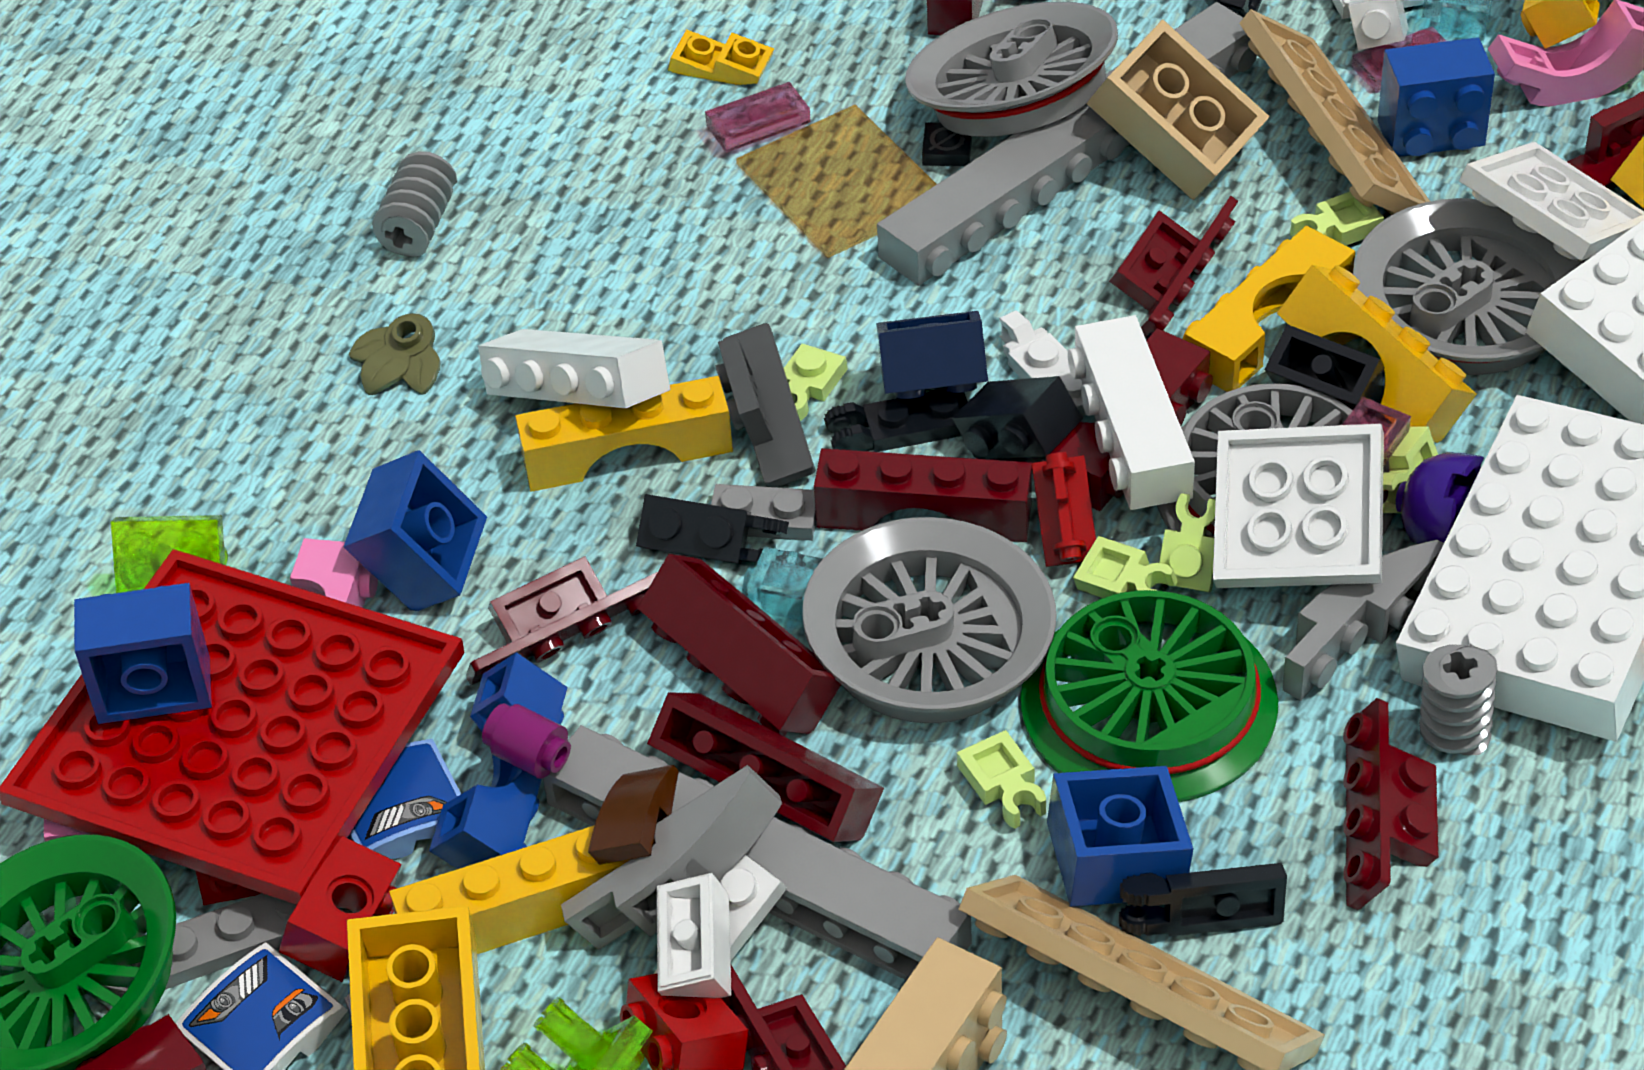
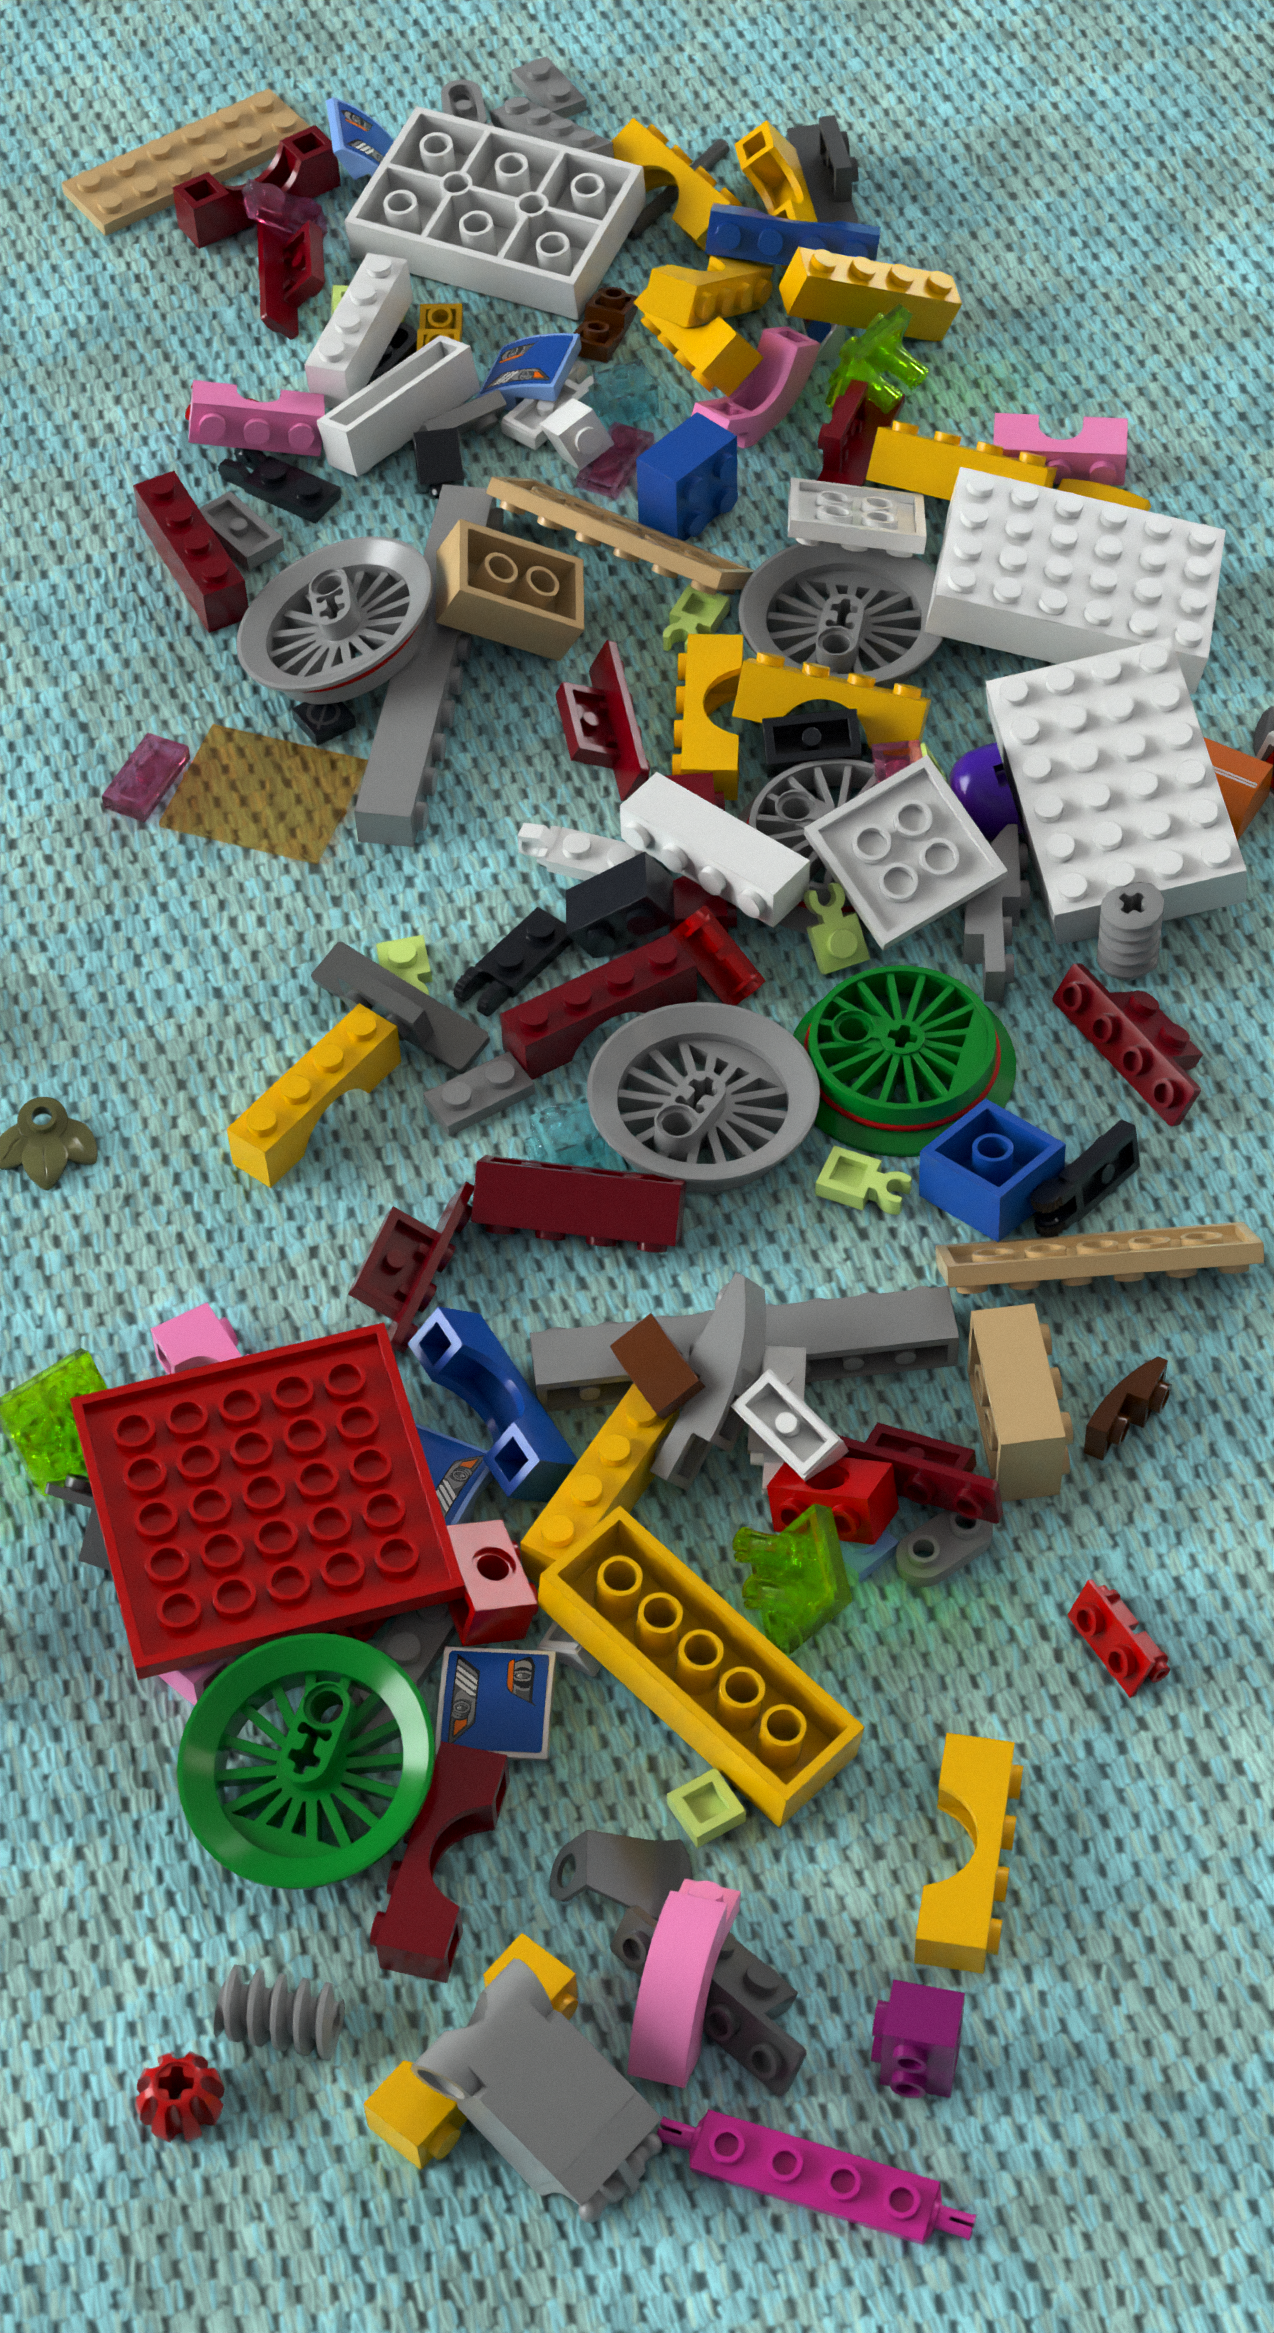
camera: 40 degrees left, 5 degrees up
(142, 653) = (172, 1482): blue brick -> none
(415, 531) = (242, 1267): blue brick -> none
(526, 740) = (516, 1365): magenta brick -> none
(574, 368) = (241, 1062): white brick -> none
(701, 529) = (454, 1134): black hinge -> none
(735, 62) = (70, 742): yellow slope -> none
(810, 786) = (688, 1276): dark red brick -> none
(932, 354) = (509, 892): dark blue slope -> none
(1118, 569) = (794, 980): yellowish green plate -> none

